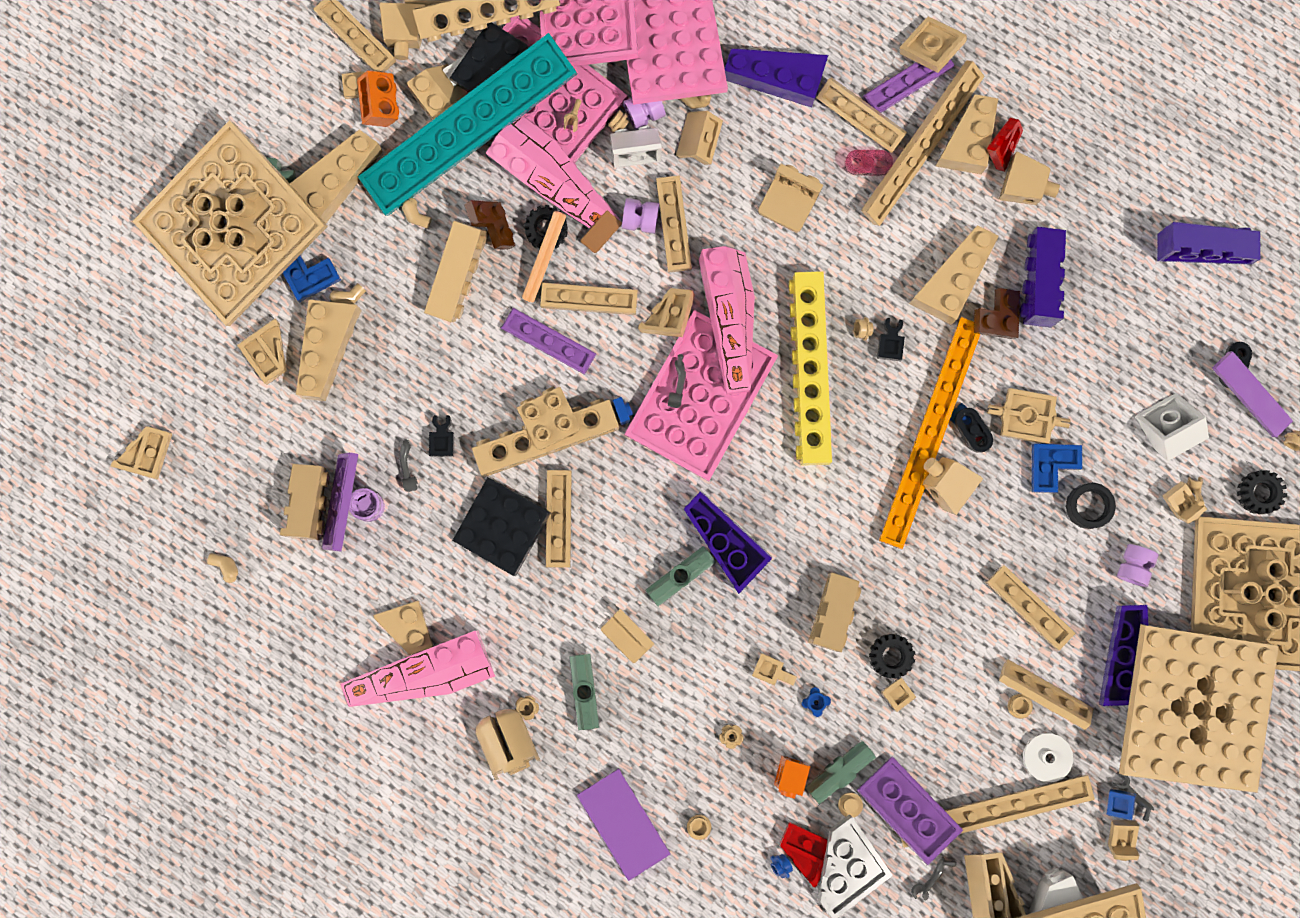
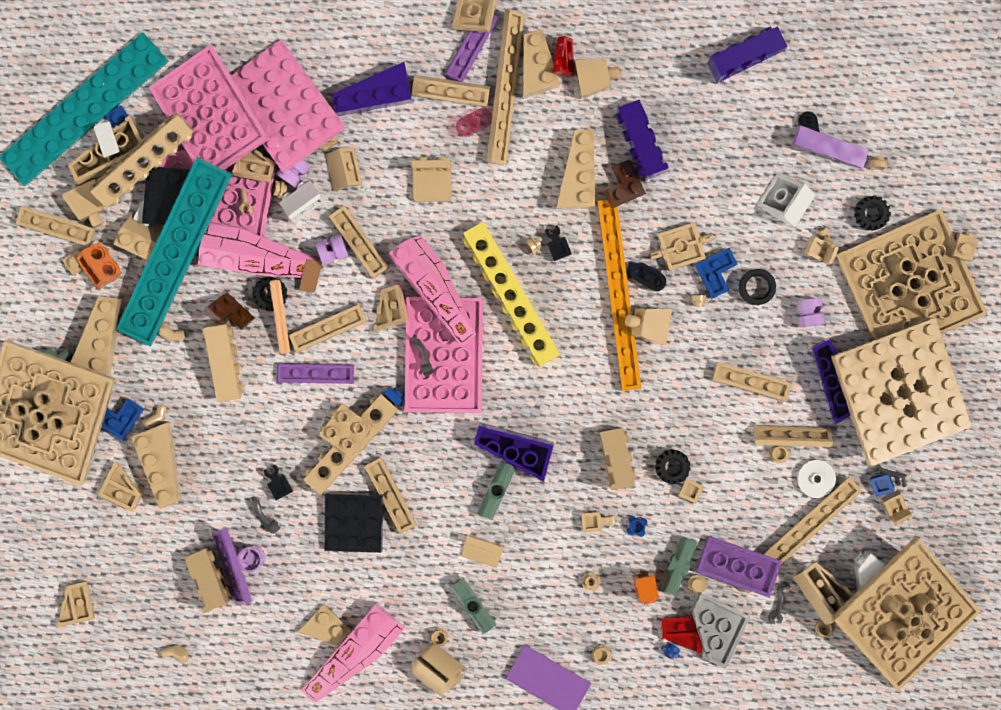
camera: 25 degrees left, 5 degrees up
(604, 81) = (254, 167): none -> tan wing
(1016, 485) = (698, 300): none -> tan plate

